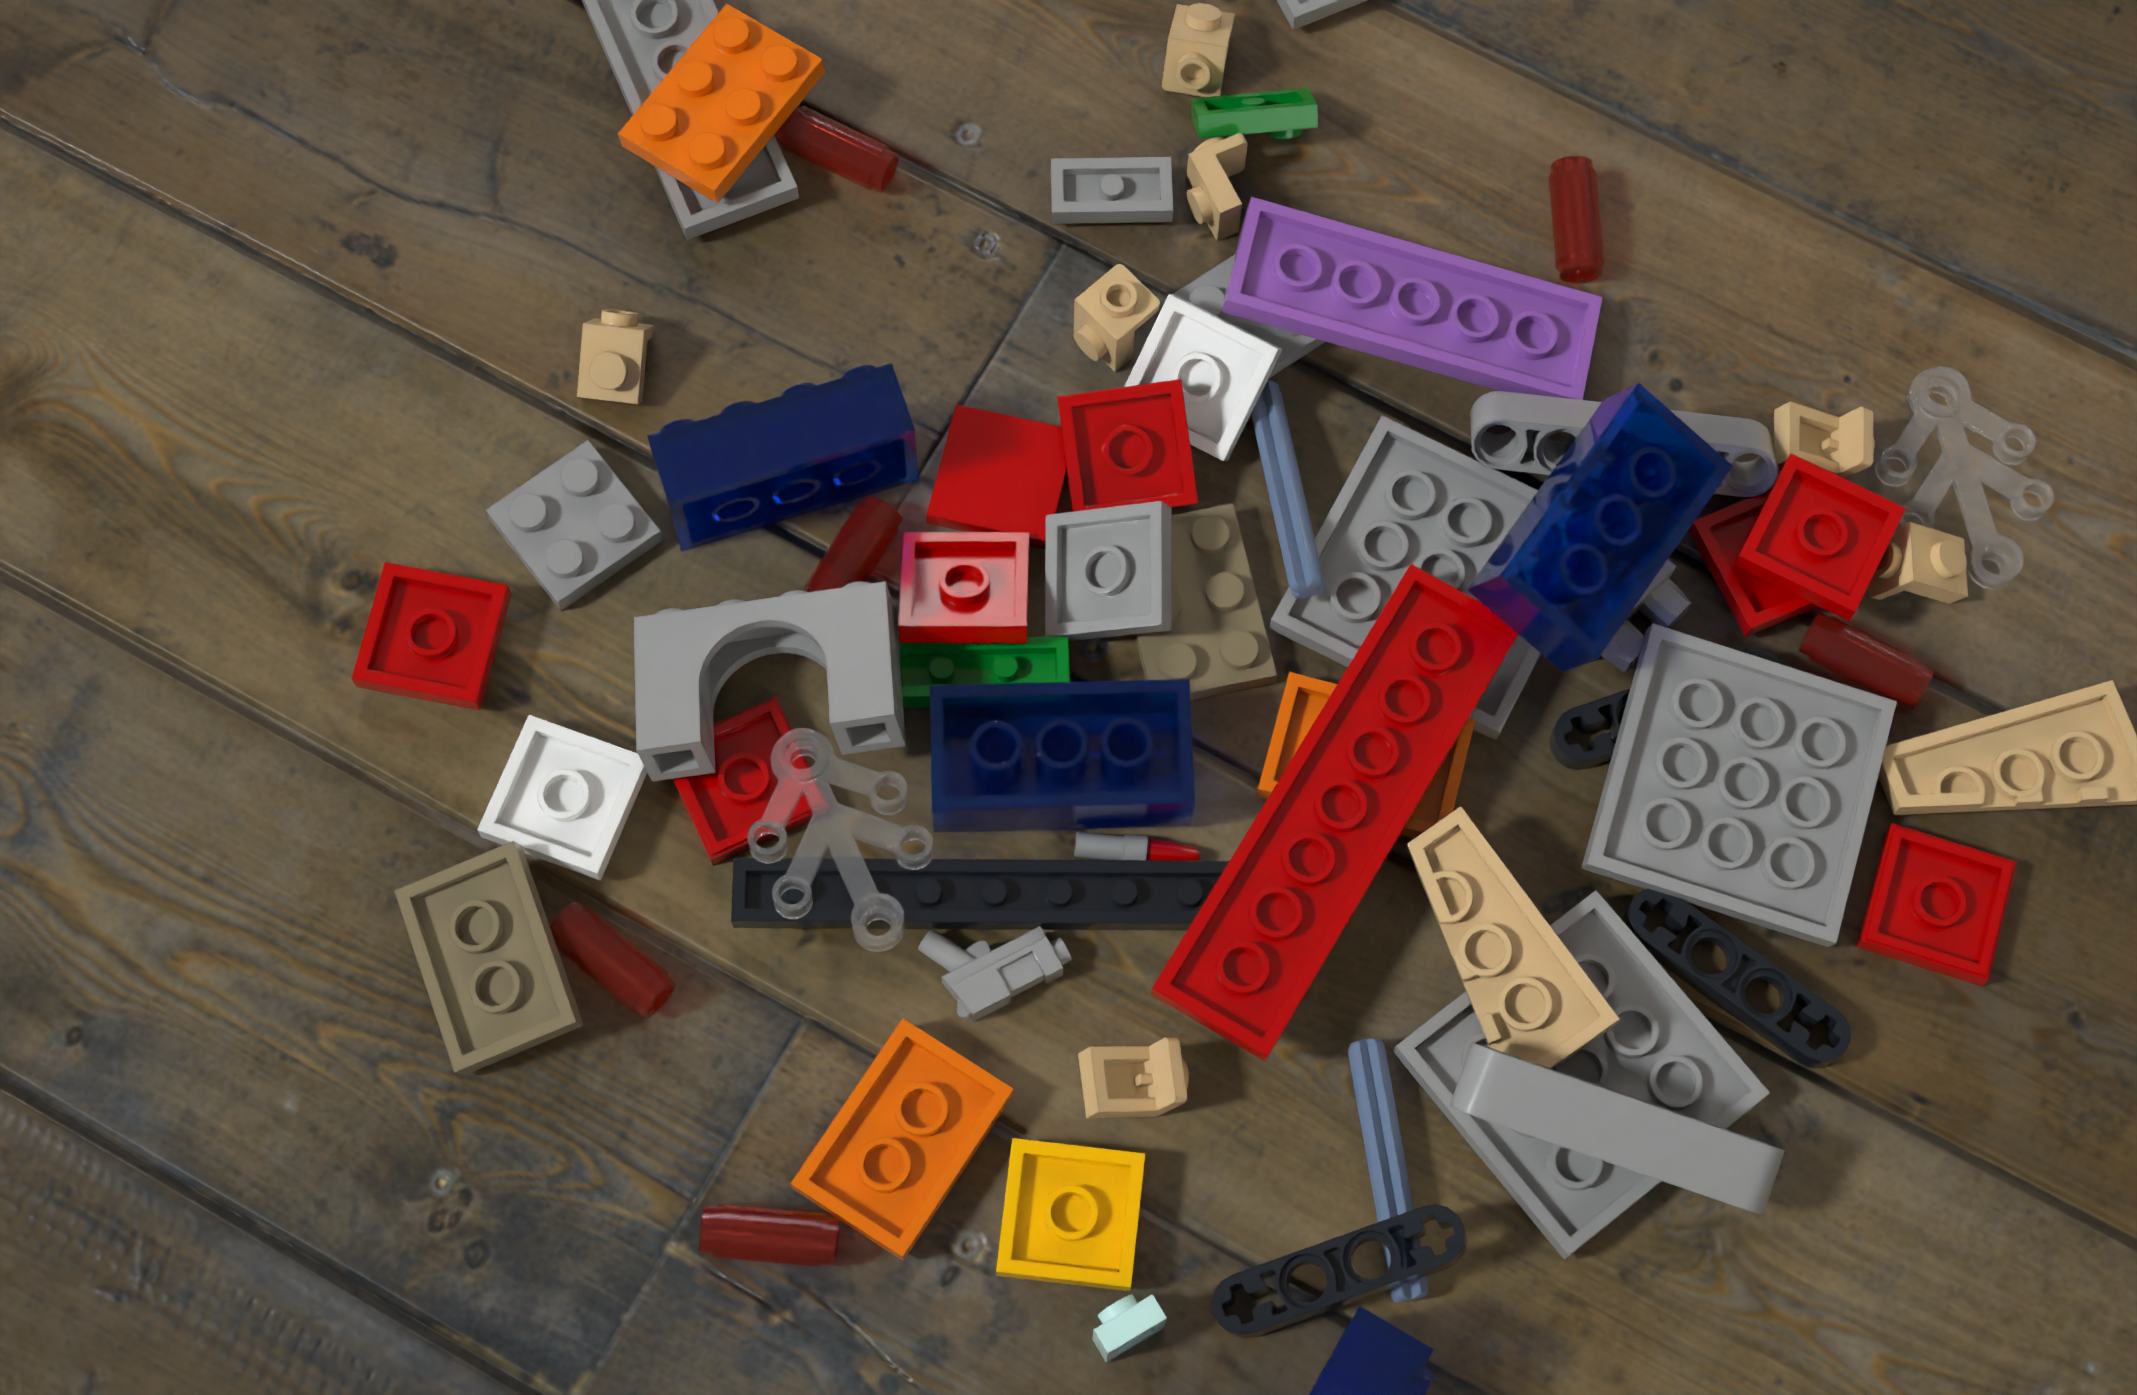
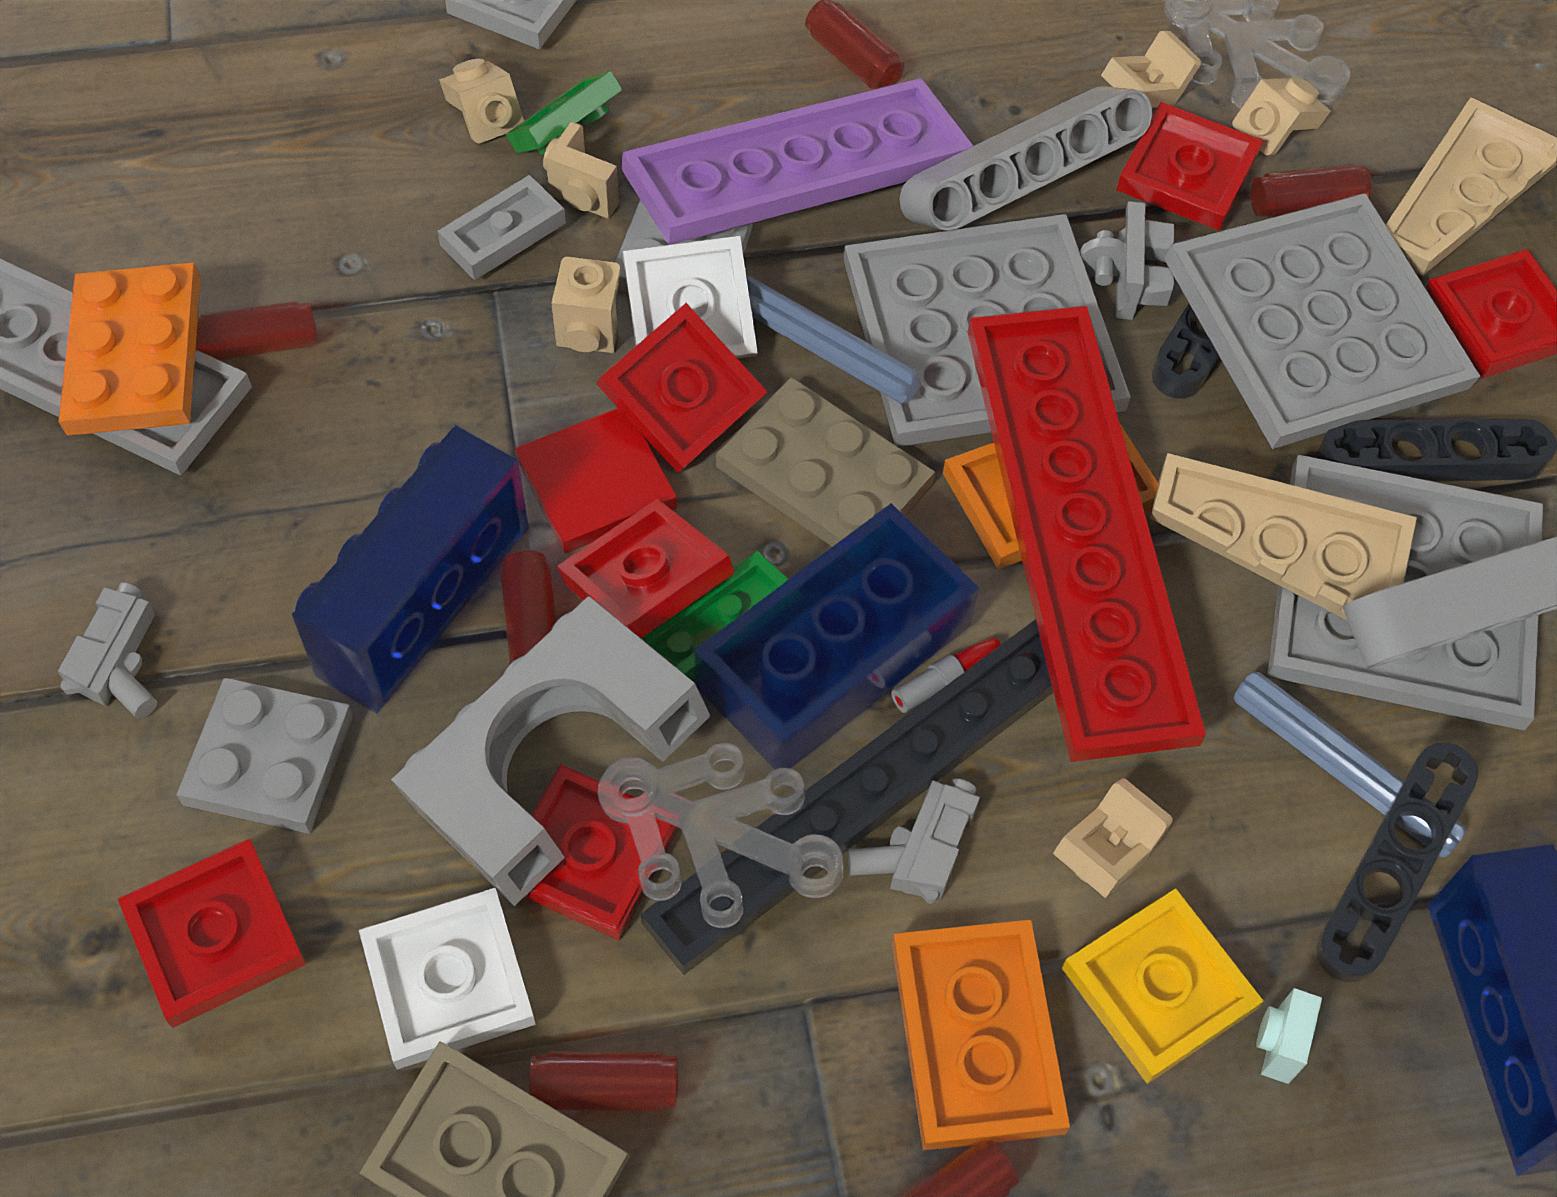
camera: 40 degrees left, 10 degrees down
(517, 356) = (105, 656): none -> light grey piece
(613, 357) = (194, 599): tan bracket -> none
(1108, 571) = (749, 479): light grey plate -> none
(1600, 528) = (1089, 197): clear blue brick -> none
(1820, 537) = (1217, 124): red plate -> none

